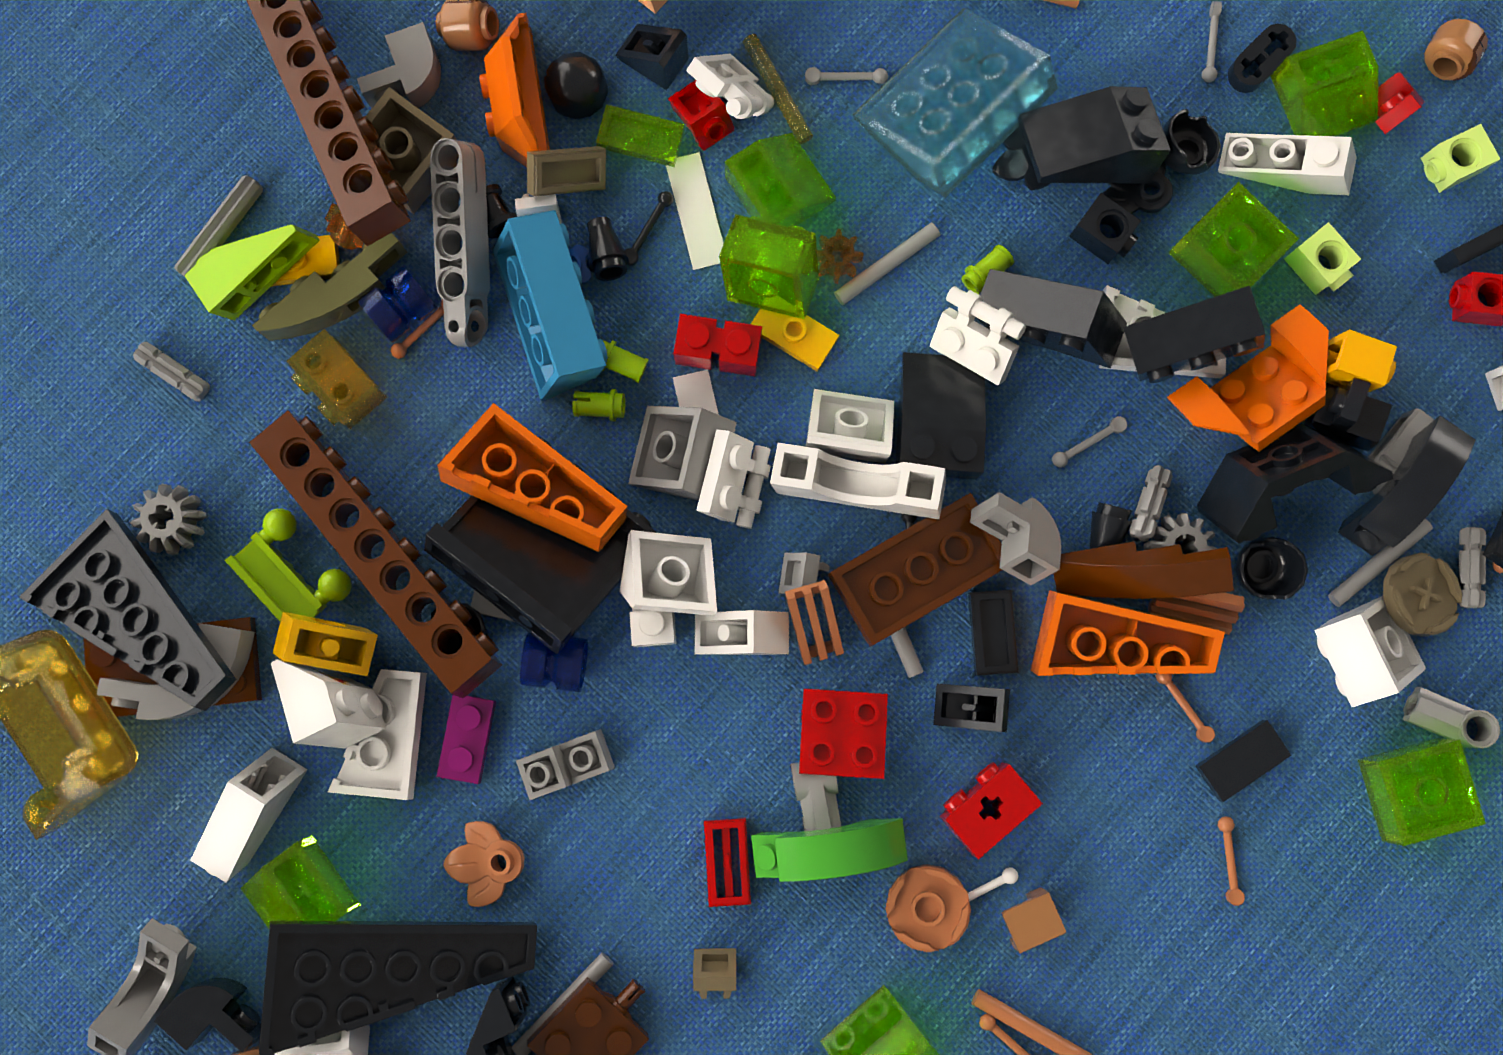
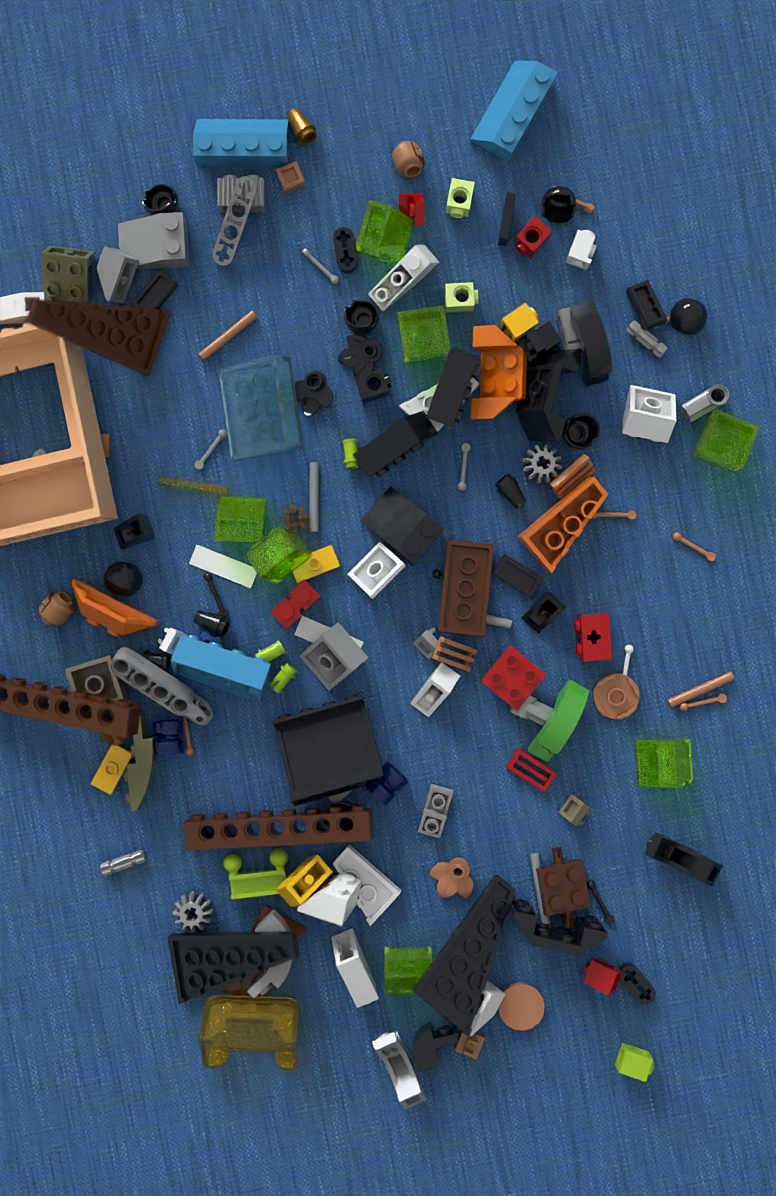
camera: 55 degrees left, 5 degrees up
(221, 223) = (69, 793): light grey axle -> none
(240, 272) = (101, 801): slope -> none
(335, 379) = (183, 790): clear yellow brick -> none
(415, 68) = (61, 649): light grey brick -> none
(466, 739) = (392, 847): magenta plate -> none
(530, 479) = (295, 736): orange wedge -> none
(566, 170) = (163, 614): dark tan tile -> none
(640, 135) = (169, 567): clear neon green plate -> none
(652, 628) = (402, 726): white brick -> none
(669, 573) = (386, 703): white slope -> none
(702, 115) = (180, 530): red bracket -> none
(726, 476) = (360, 645): white plate -> none
(729, 78) = (177, 506): white plate -> none
(891, 488) = (406, 588): white arch -> none
(971, 343) = (386, 486): white plate -> none
(1027, 534) = (487, 529): light grey brick -> none
(1033, 921) = (655, 655): medium nougat panel -> none
(1096, 138) = (328, 360): black slope -> none
(1144, 574) = (545, 487): reddish brown slope -> none
(1151, 503) = (512, 462): light grey axle -> none
(1243, 760) = (655, 507): black tile -> none
(1376, 565) = (614, 380): light grey bar -> none
(1422, 594) = (642, 371): dark tan tile -> none

